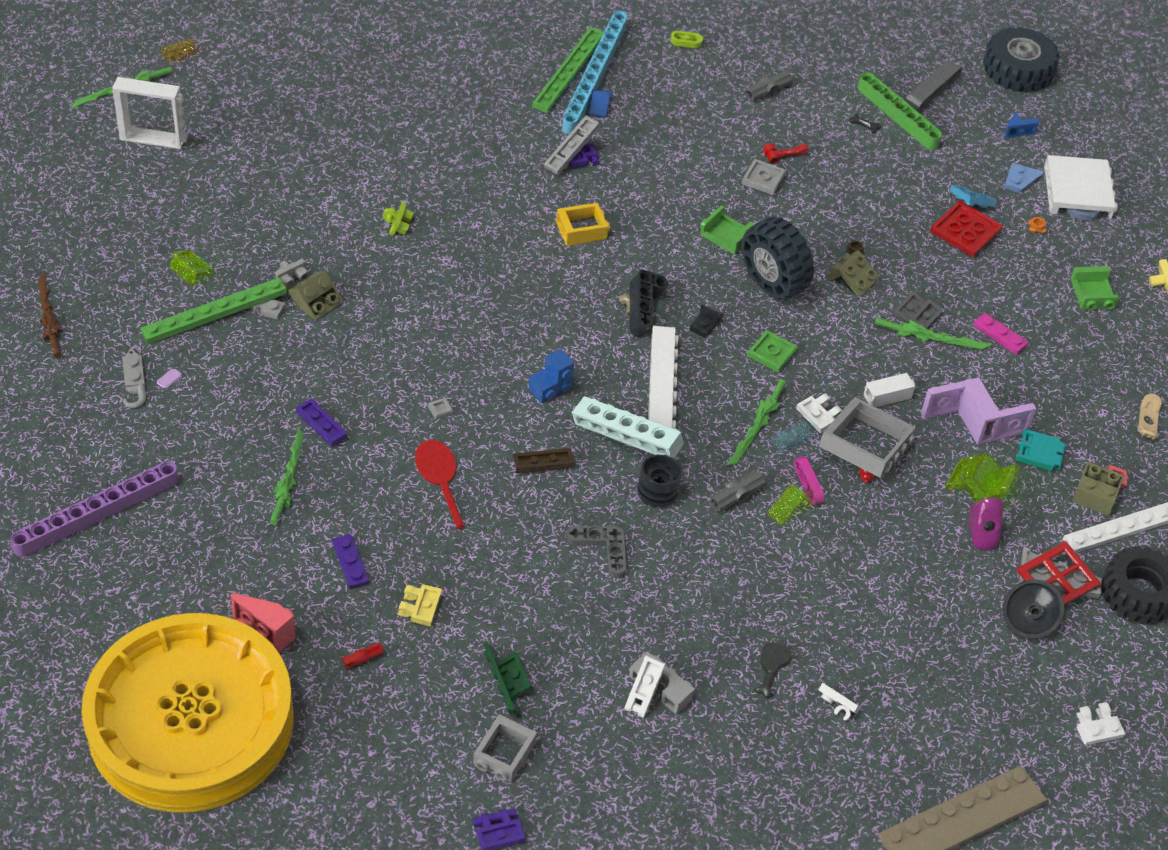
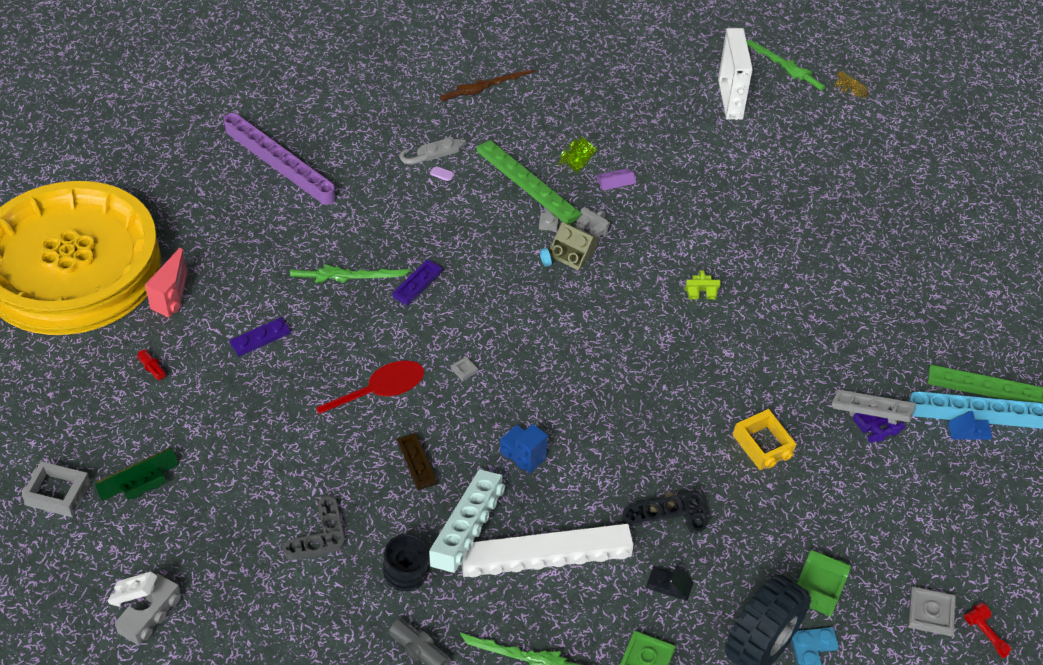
camera: 80 degrees right, 0 degrees up
(232, 246) = (615, 179): none -> medium lavender slope
(322, 318) = (545, 257): none -> medium azure tile
(425, 606) = (216, 400): light yellow plate -> none

